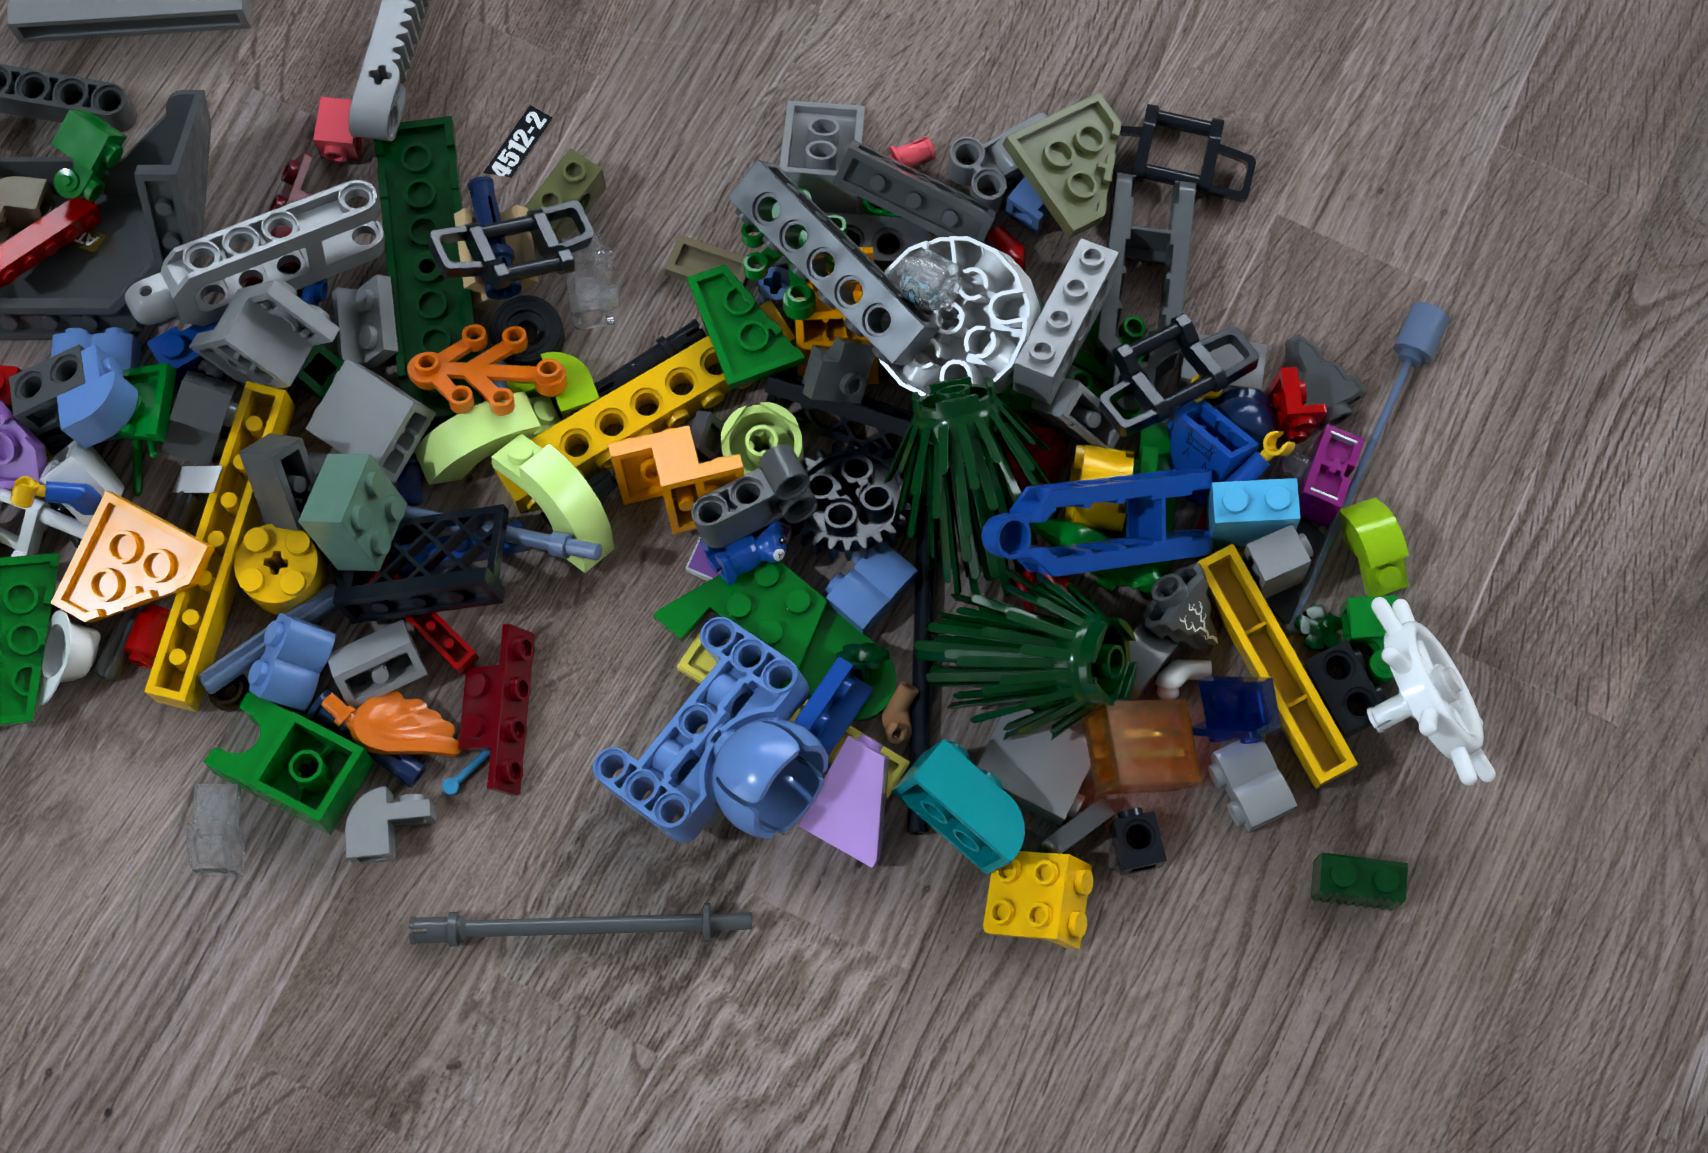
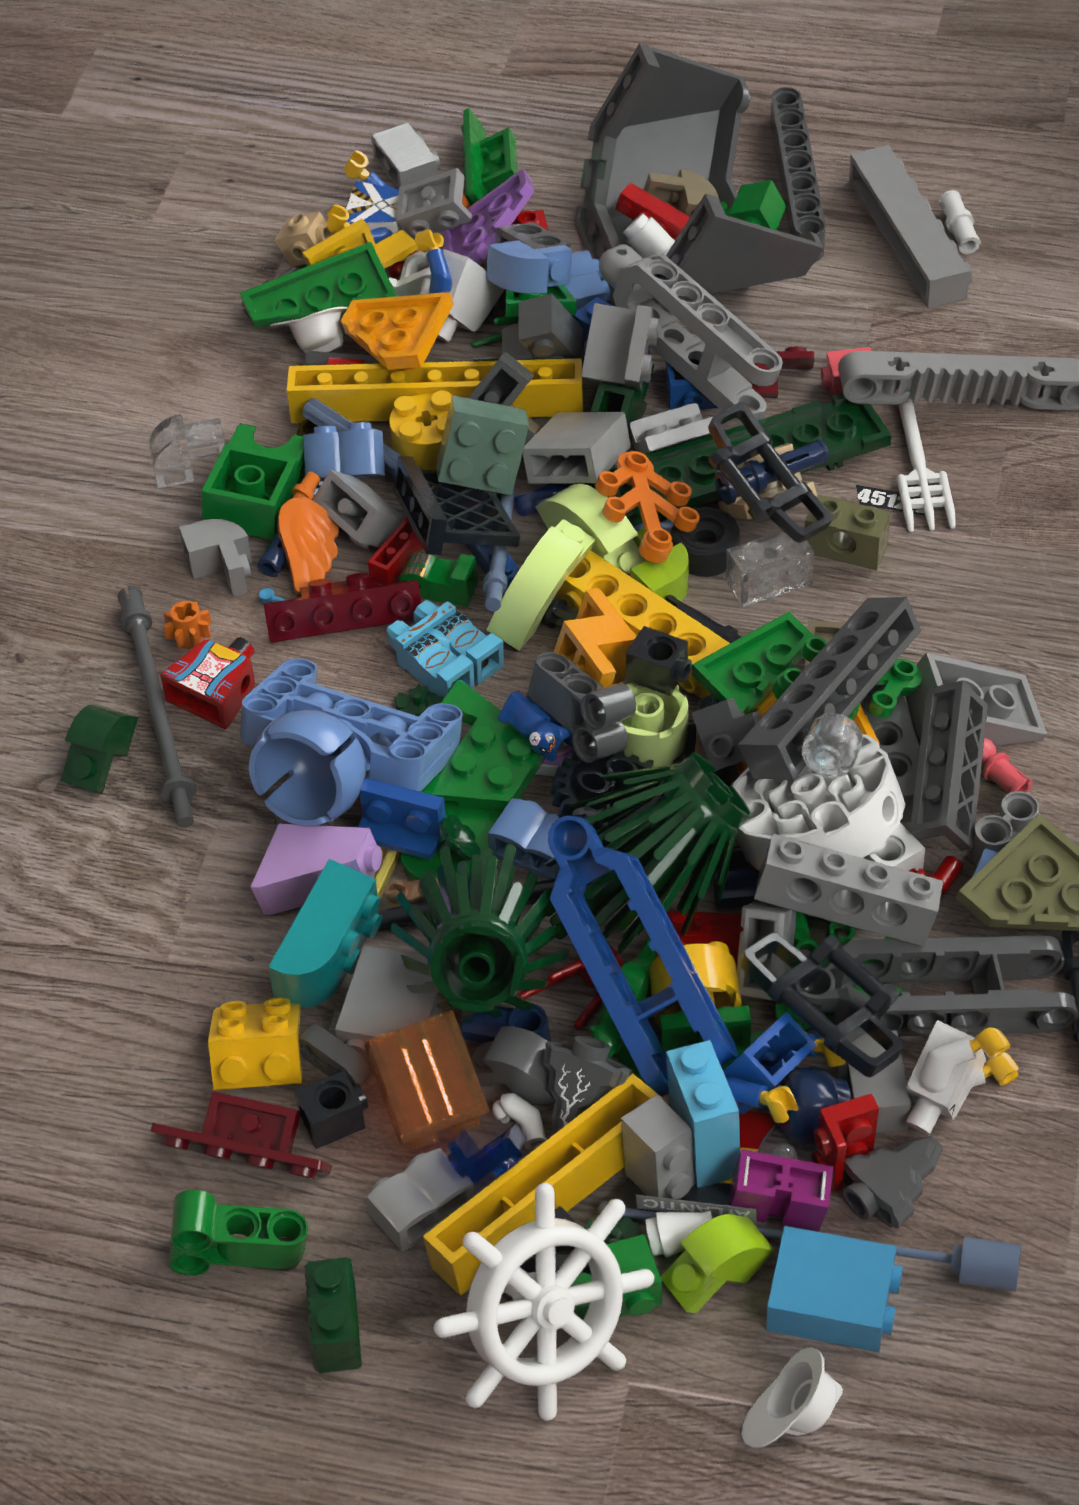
camera: 80 degrees right, 25 degrees down
(63, 266) = (648, 237): none -> white brick
(479, 886) = (187, 624): none -> orange gear
(486, 621) = (443, 578): none -> green leg
(498, 108) = (921, 476): none -> white piece
(568, 860) = (211, 680): none -> red torso
(599, 619) = (444, 648): none -> medium azure hips
(627, 994) = (94, 740): none -> dark green brick
(654, 664) = (416, 701): none -> dark green plant
(719, 429) = (657, 661): none -> black brick
(1146, 926) = (250, 1129): none -> dark red bracket
(1247, 295) = (951, 1067): none -> white torso
(1260, 979) = (204, 1231): none -> green piece
(1336, 570) = (670, 1228): none -> white cone
(1418, 462) = (833, 1289): none -> dark azure brick
(1520, 528) = (794, 1403): none -> white piece

